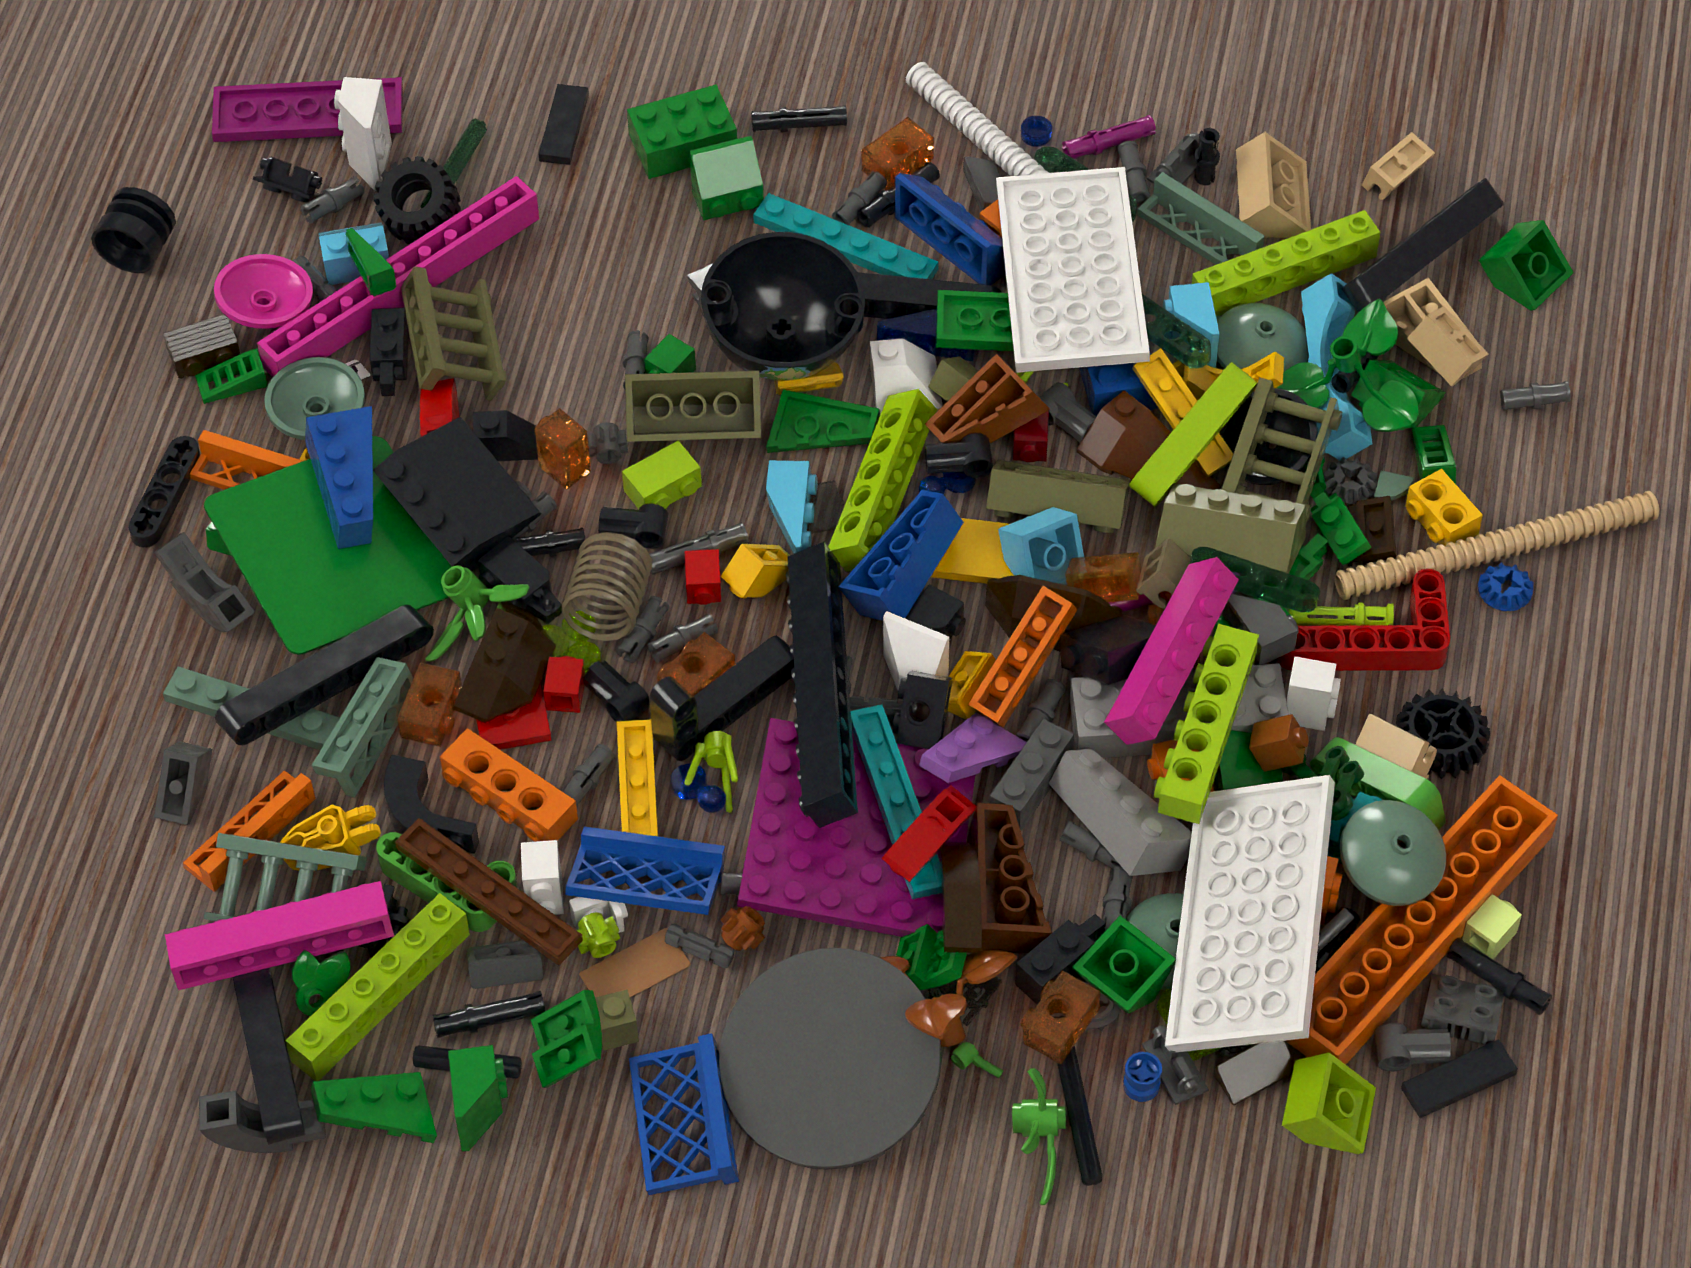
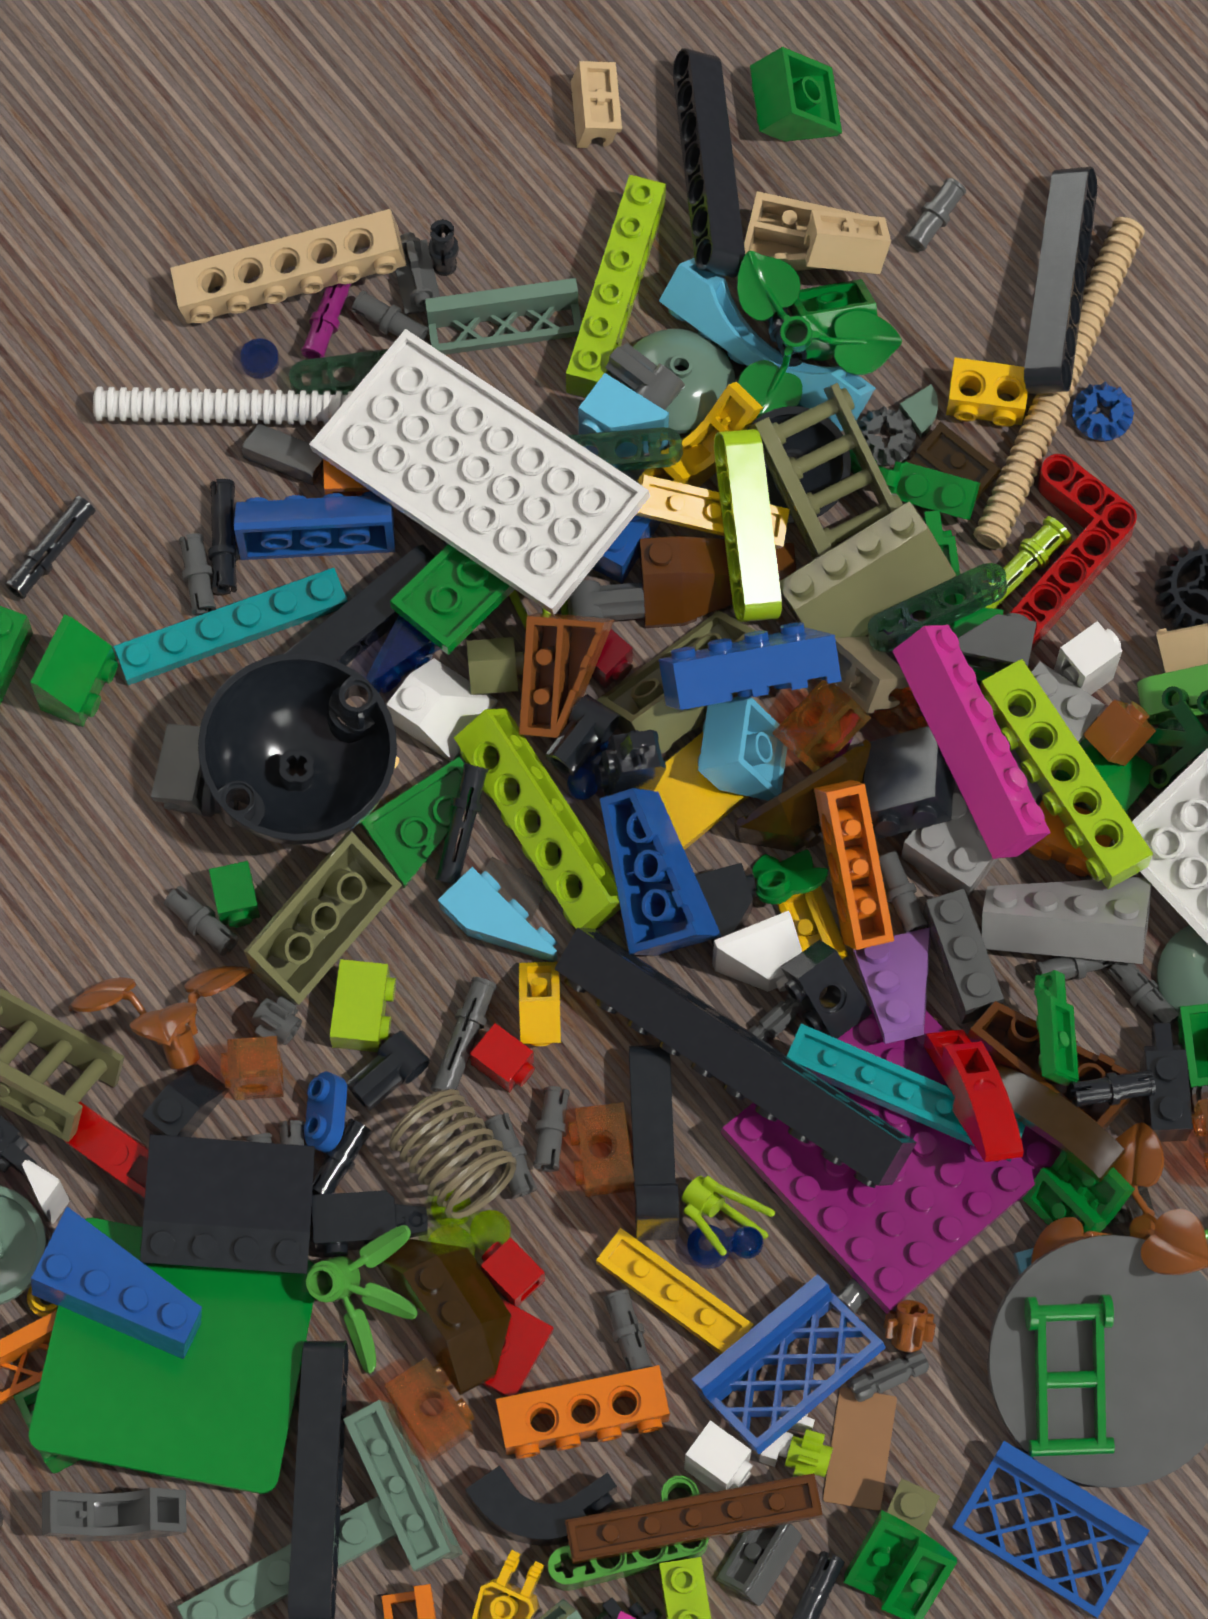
camera: 50 degrees left, 15 degrees up
(376, 395) = (47, 1190): none -> white slope
(544, 399) = (168, 1024): none -> dark orange plant
(564, 513) = (325, 1111): none -> blue plate
(622, 699) = (573, 1234): black piece -> none
(847, 433) = (473, 777): none -> black pin
(847, 1016) = (1035, 1319): none -> green piece
(898, 151) = (173, 478): clear orange brick -> none
(965, 485) = (630, 762): none -> black hinge
(979, 637) = (786, 878): none -> green plate
(1017, 912) = (1112, 1088): none -> black pin
(1023, 848) = (1056, 1029): none -> green hinge
(1091, 497) = (749, 666): none -> blue wedge
(1107, 92) = (270, 259): none -> tan brick
(1233, 314) = (643, 376): none -> dark grey piece
(1272, 188) = (521, 225): tan slope -> none
(1433, 455) = (938, 362): green slope -> none
(1564, 488) = (1060, 281): none -> beam

